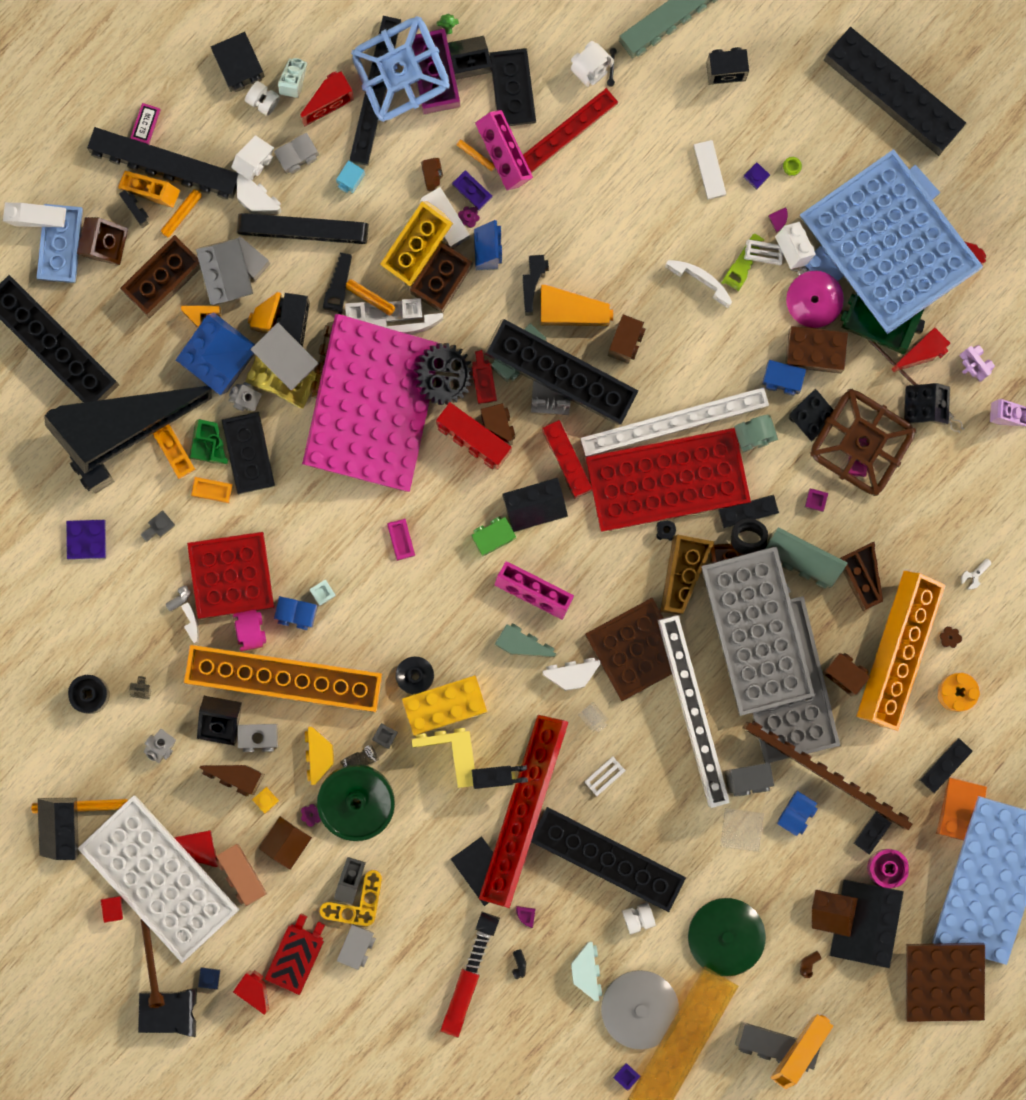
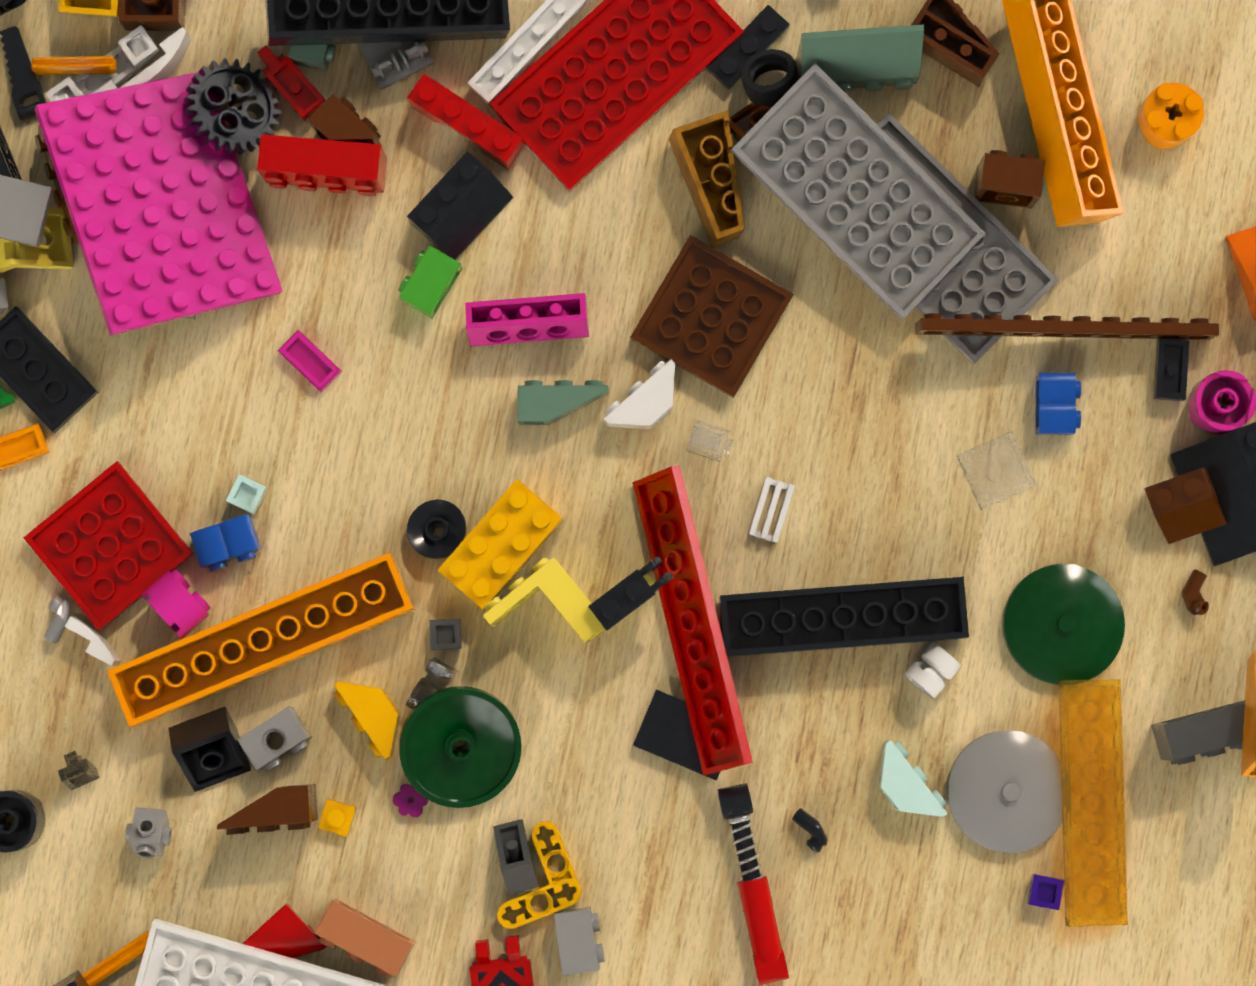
camera: 20 degrees left, 0 degrees up
(285, 843) = (398, 859): reddish brown slope -> none
(526, 915) = (780, 759): magenta tile -> none
(661, 534) = (654, 144): black brick -> none
(693, 711) = (837, 350): white brick -> none
(754, 778) = (968, 393): dark grey brick -> none
(946, 765) = (1212, 223): black plate -> none
(954, 633) = (1122, 48): reddish brown plant -> none

